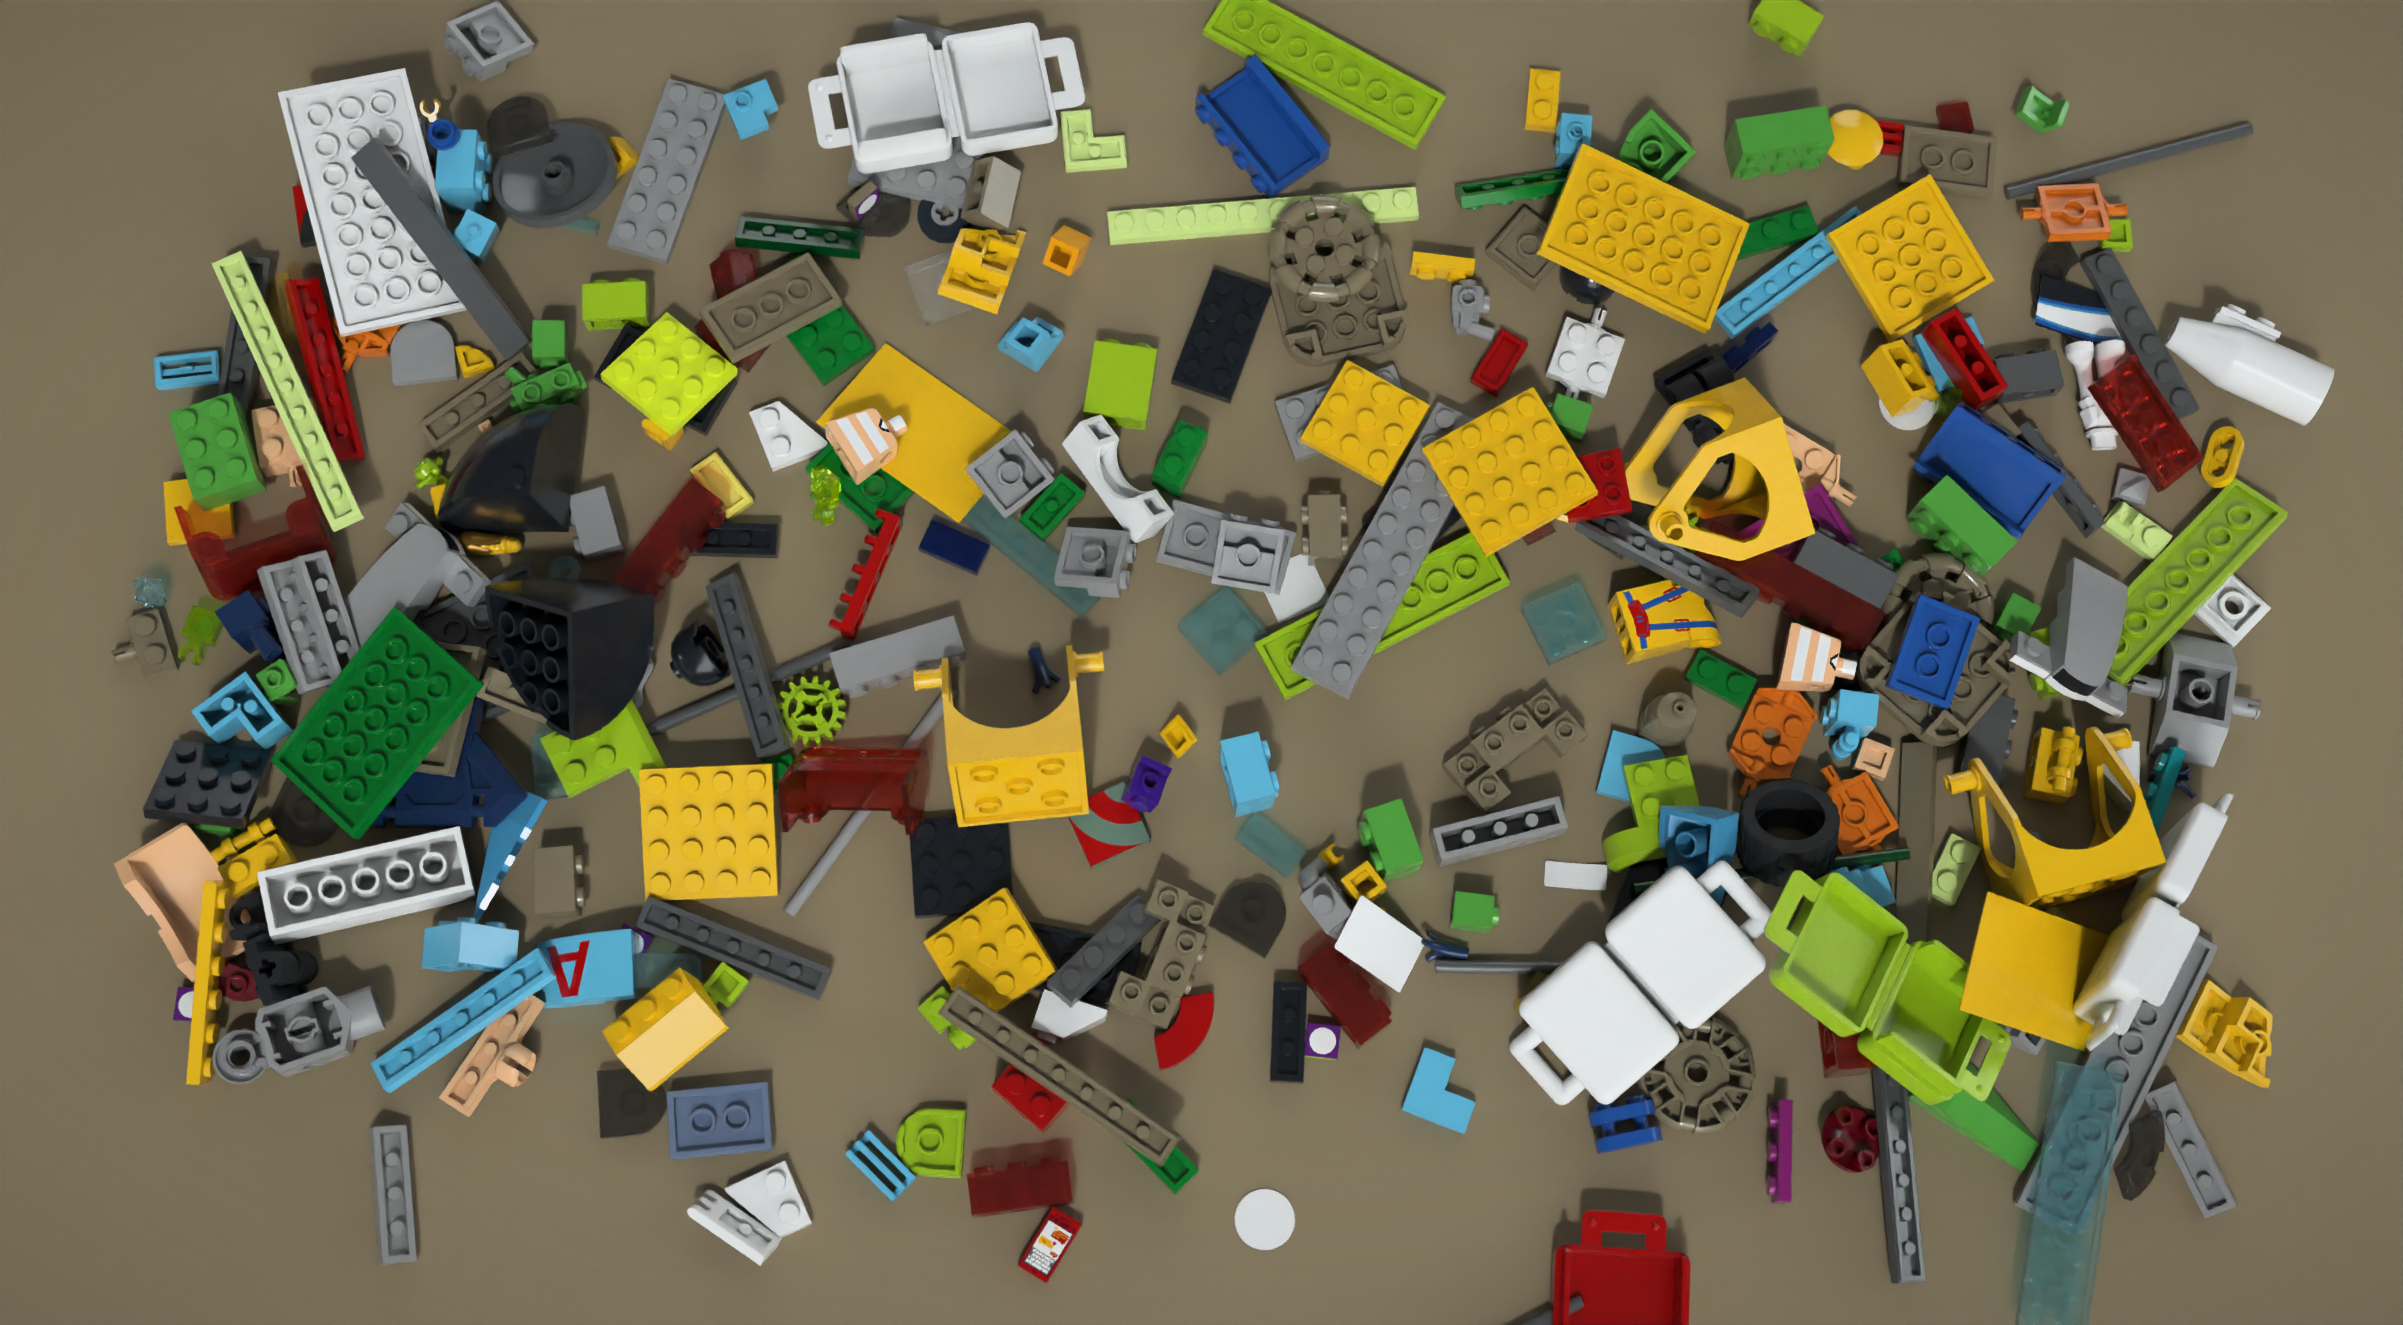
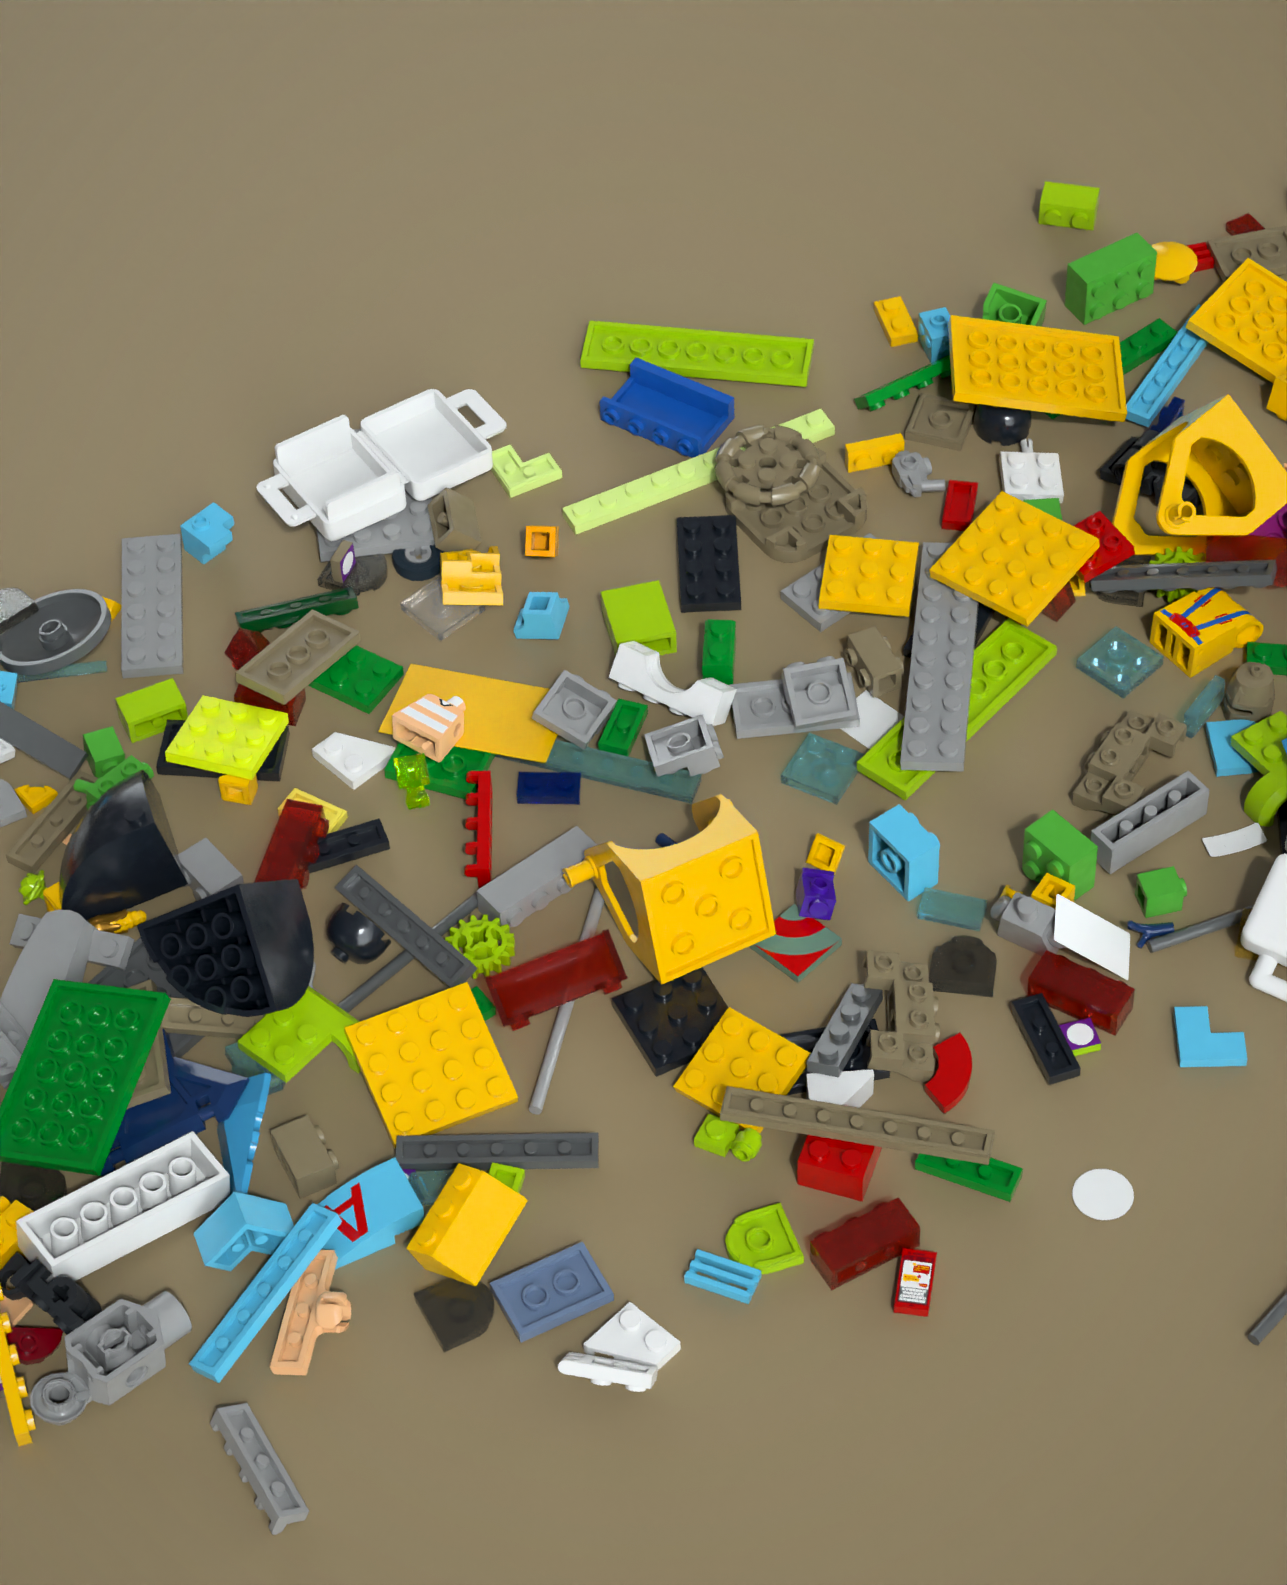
camera: 15 degrees left, 25 degrees down
(1618, 712) = (1204, 706): none -> clear light blue tile

